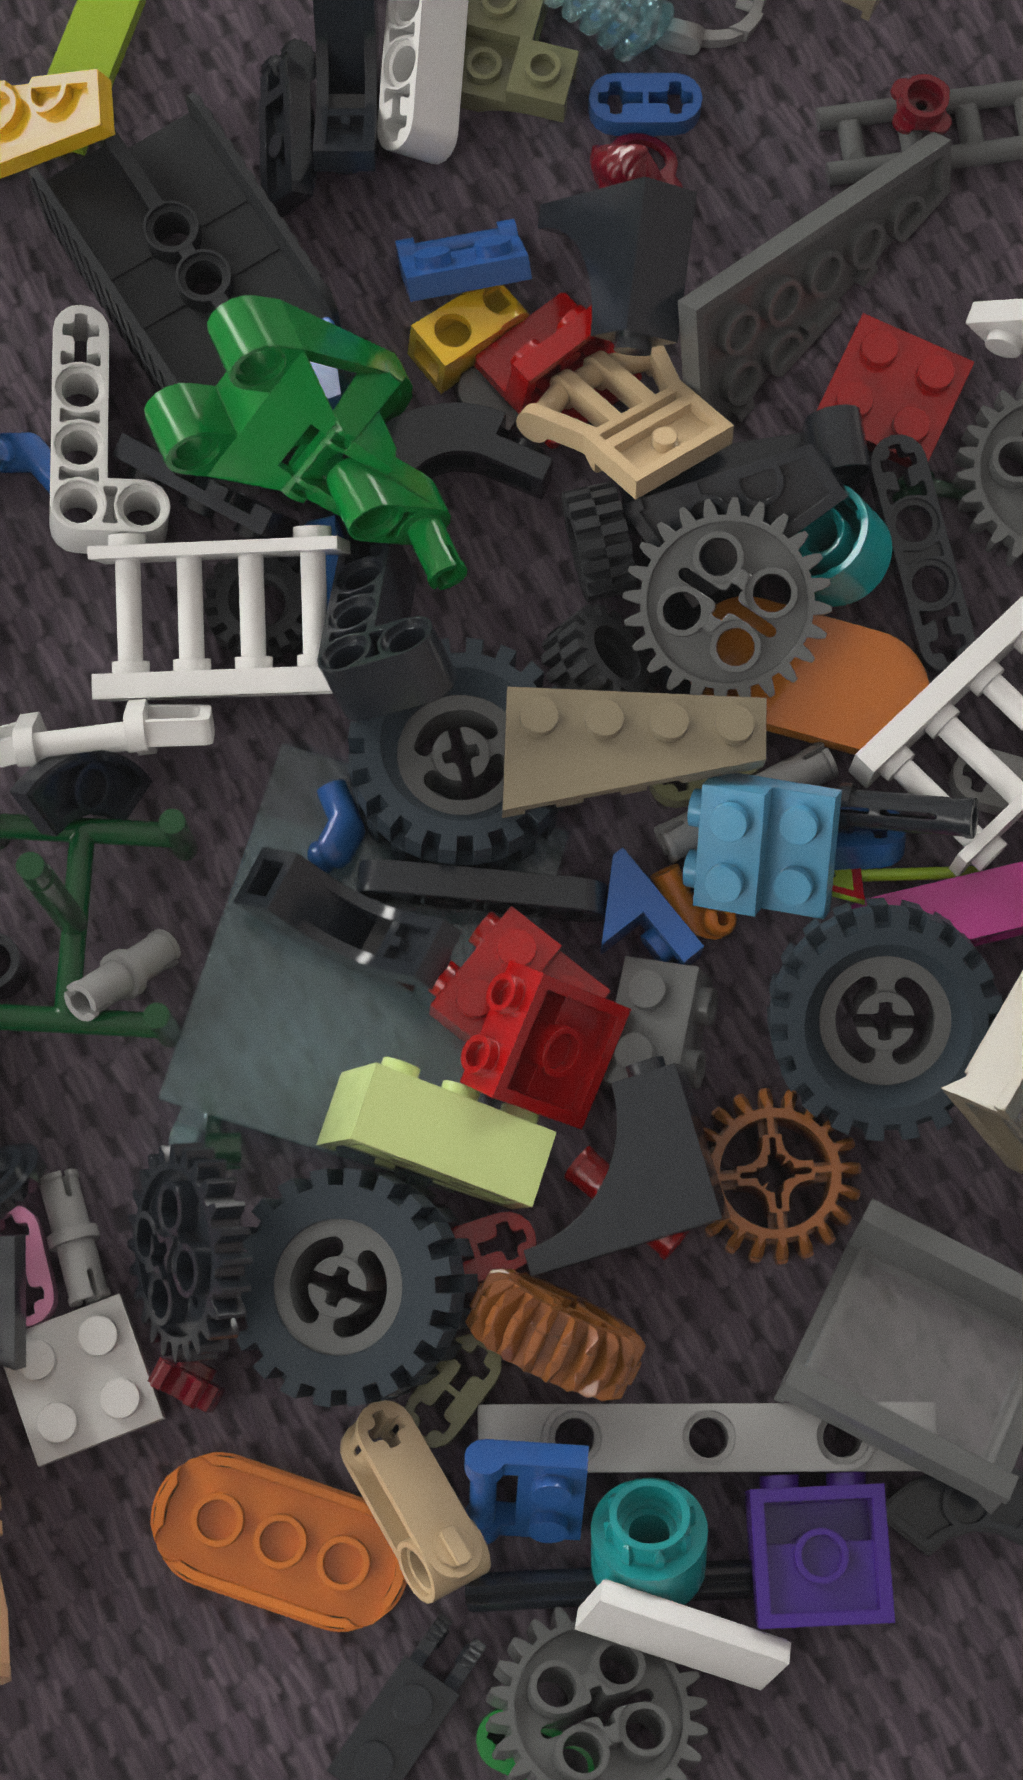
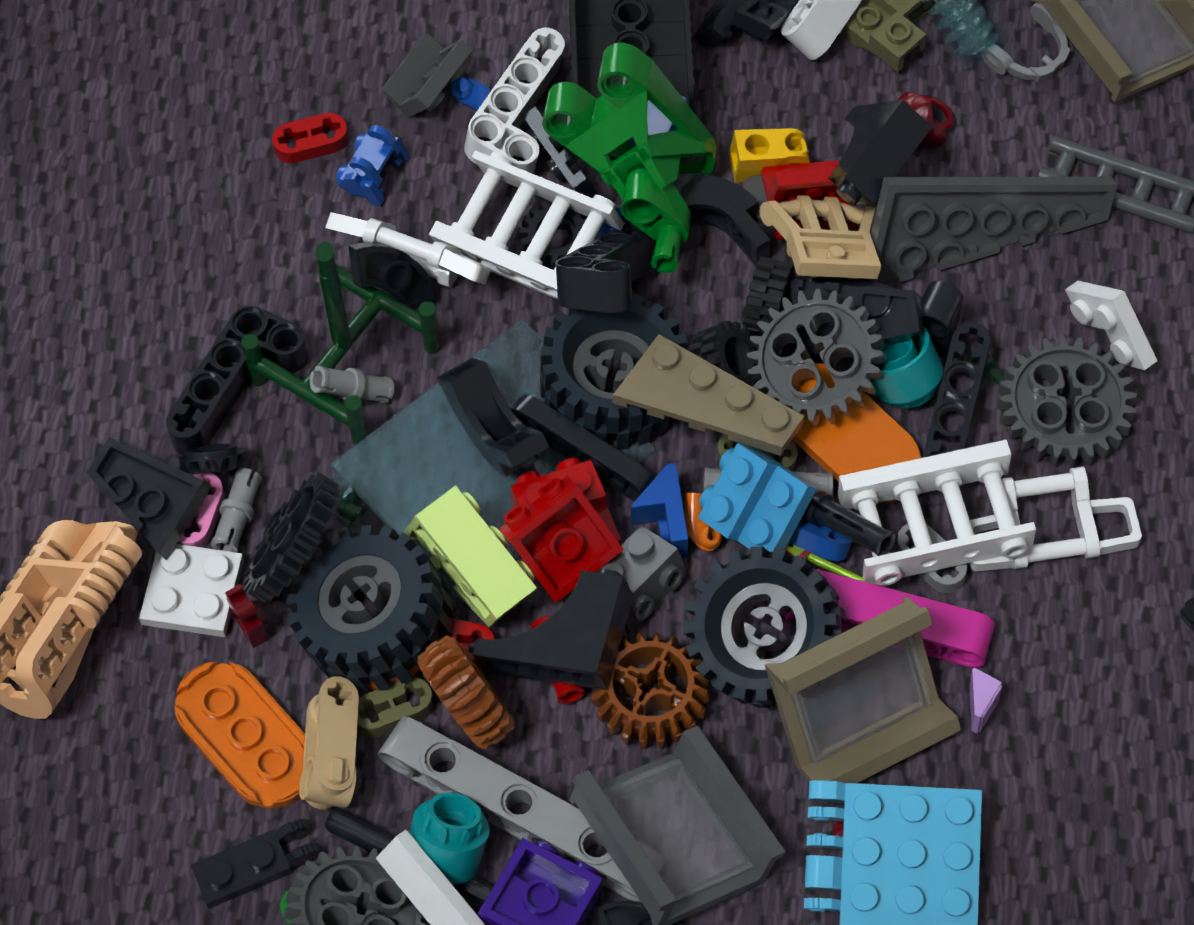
camera: 35 degrees right, 15 degrees down
(342, 832) = (523, 378): blue arm -> none
(463, 262) = (788, 113): blue plate -> none
(548, 1489) = (409, 774): blue plate -> none
(645, 103) = (953, 85): blue beam -> none
(897, 384) = (1007, 308): red plate -> none
(922, 90) = (1117, 151): dark red plate -> none

